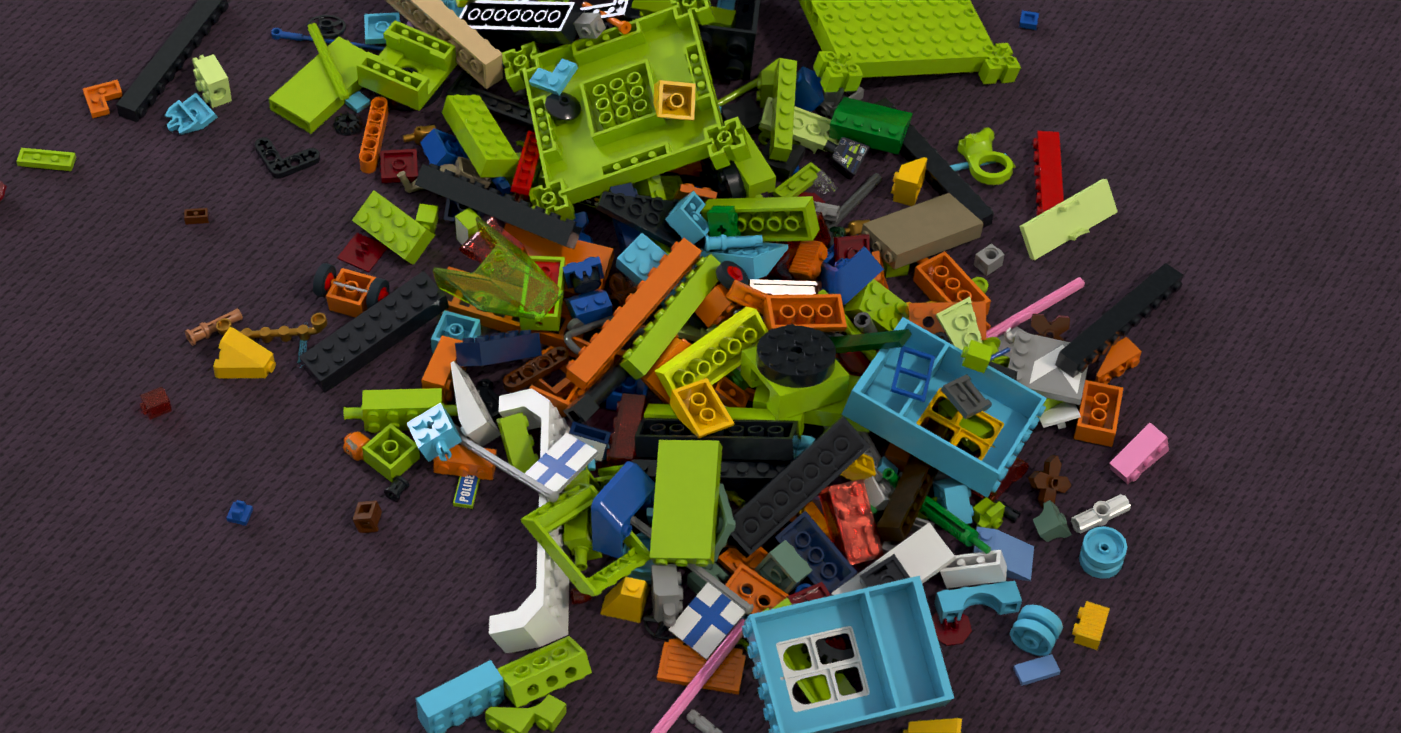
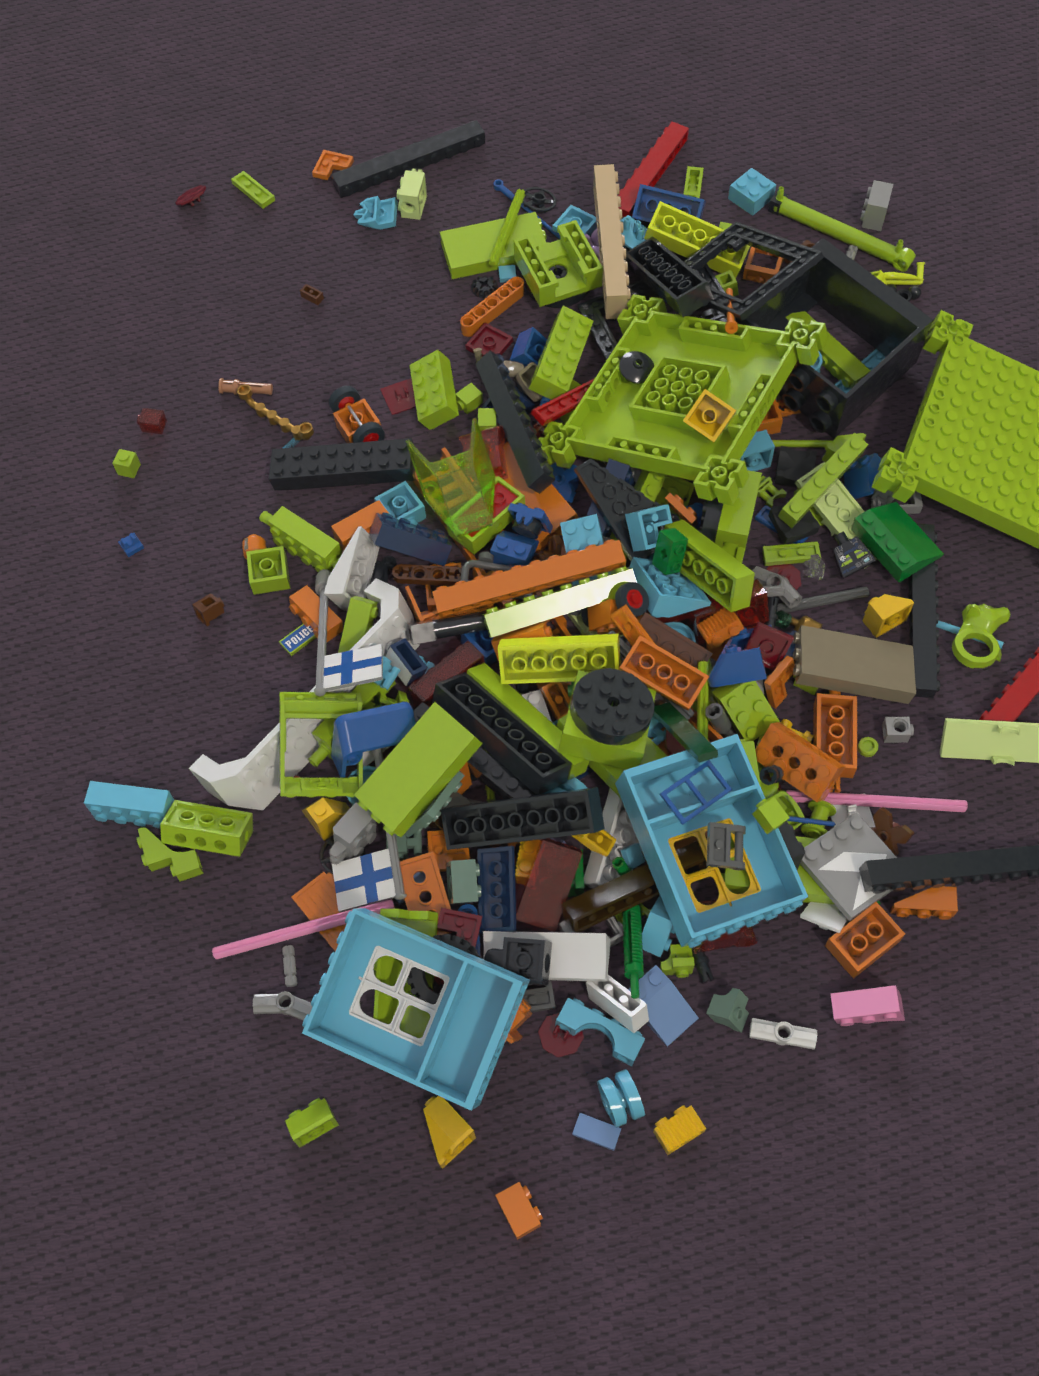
camera: 45 degrees right, 10 degrees up
(169, 450) = (126, 463): none -> lime brick
(242, 357) = (236, 424): yellow slope -> none
(280, 163) = (408, 288): black beam -> none
(401, 485) = (249, 601): black bush -> none
(419, 134) = (524, 325): pearl gold piece -> none
(434, 433) = (303, 576): medium azure brick -> none
(554, 81) = (646, 342): medium azure plate -> none
(589, 25) = (708, 309): light grey brick -> none
(700, 408) = (503, 698): yellow slope -> none
(723, 242) = (657, 565): medium azure pin -> none
(960, 323) = (796, 781): yellowish green wing -> none
(1049, 480) = (759, 970): reddish brown plant -> none
(1103, 552) = (762, 1071): medium azure wheel -> none

